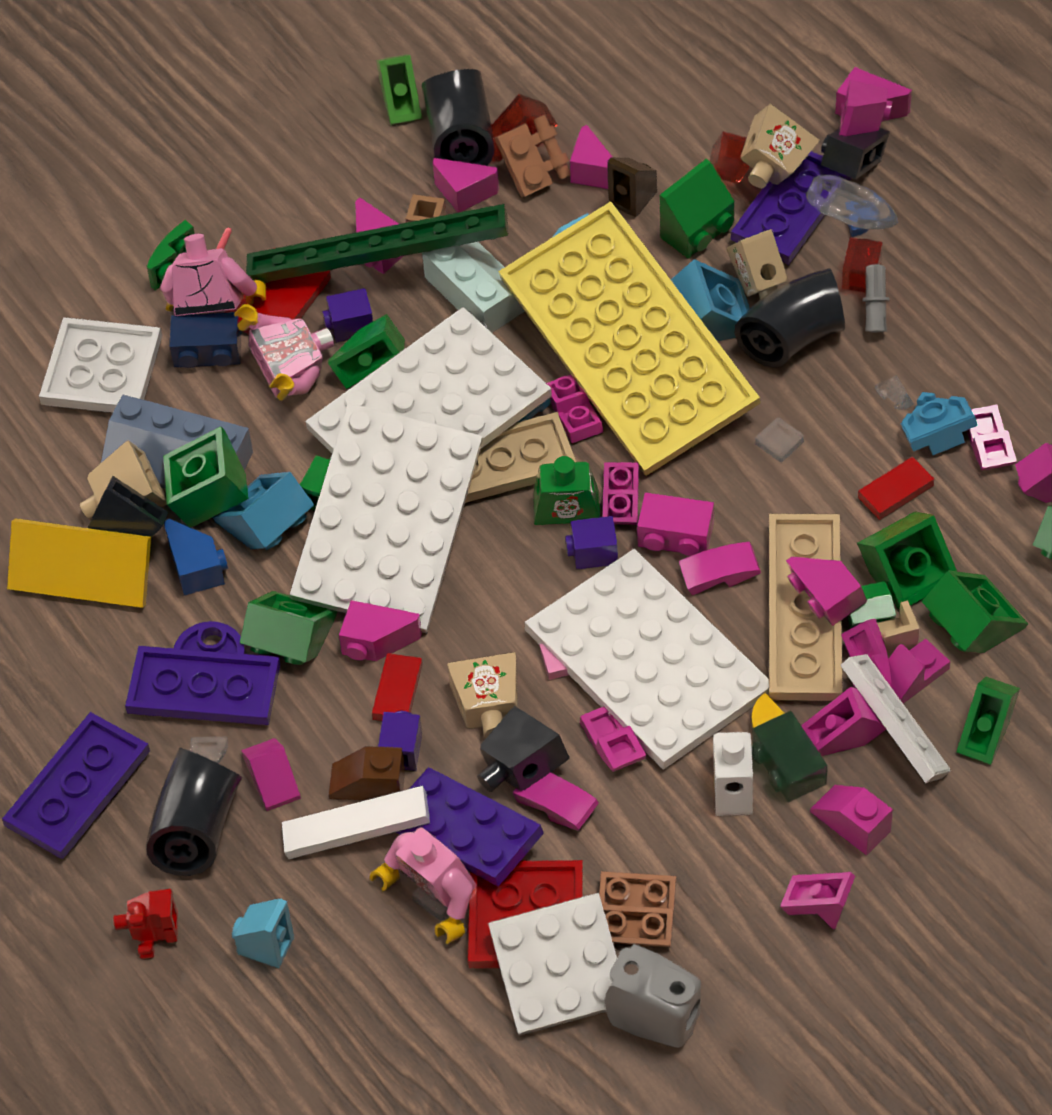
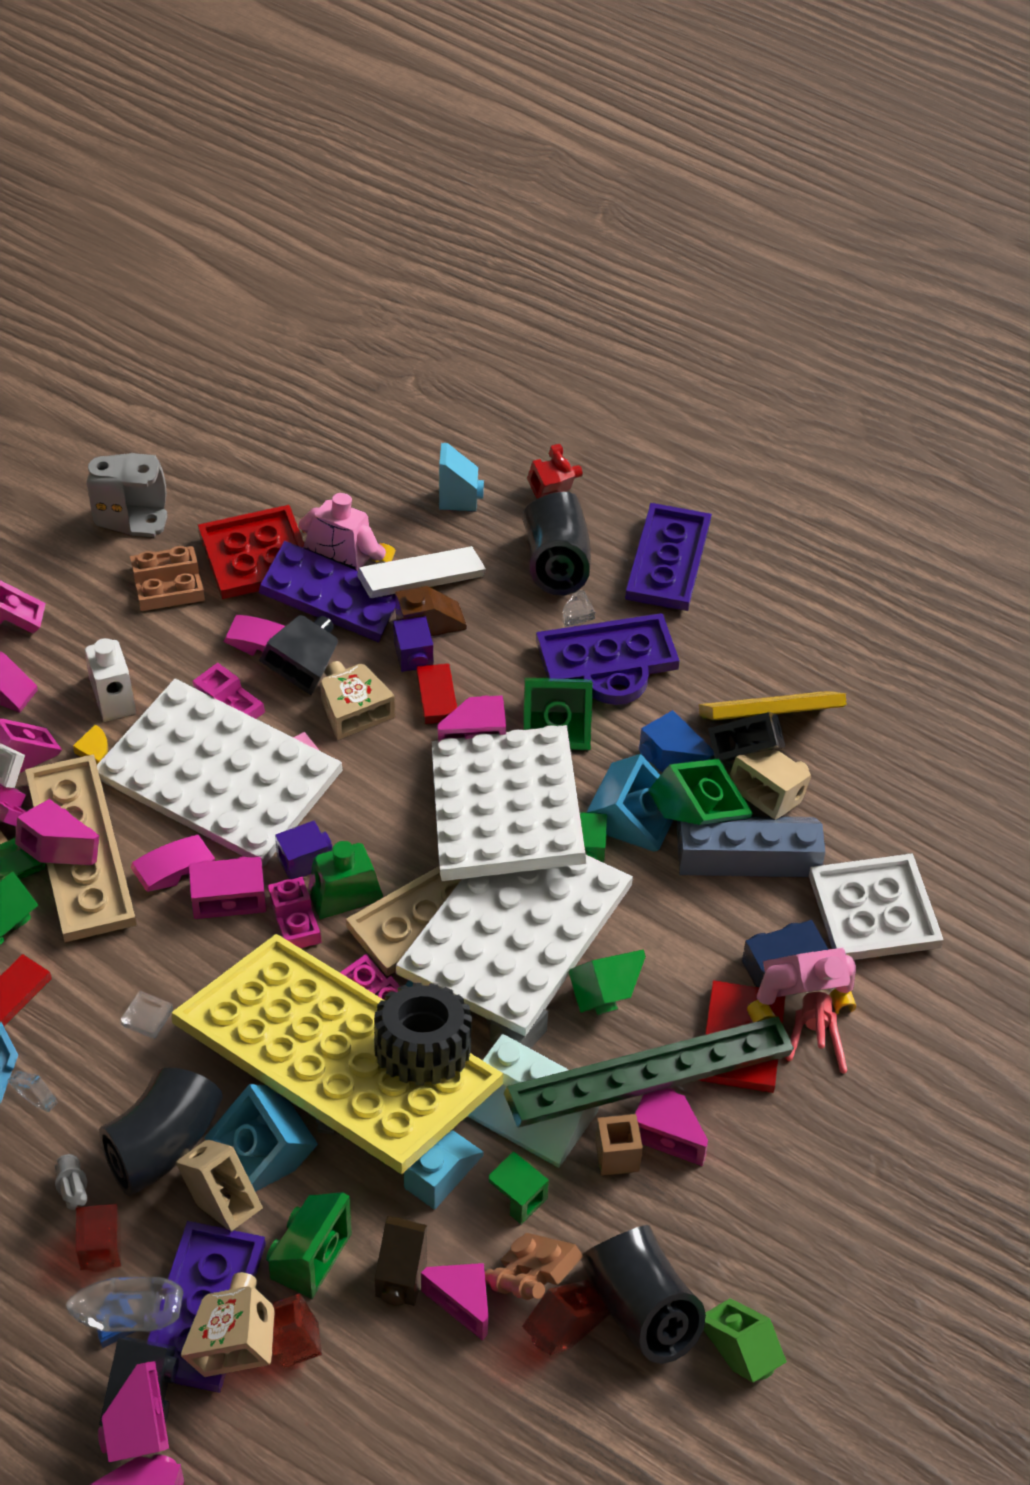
camera: 155 degrees right, 5 degrees down
(167, 252) = (878, 1040): green slope -> none
(271, 773) = (518, 605): dark pink slope -> none
(285, 350) = (692, 952): torso -> none
(347, 313) = (651, 1022): dark purple brick -> none
(465, 182) = (600, 1219): dark pink slope -> none
(520, 217) = (521, 1185): none -> green panel
(550, 272) = (422, 1033): none -> black tyre
(555, 962) = (214, 512): white plate -> none
(788, 756) = (62, 708): clear green brick -> none

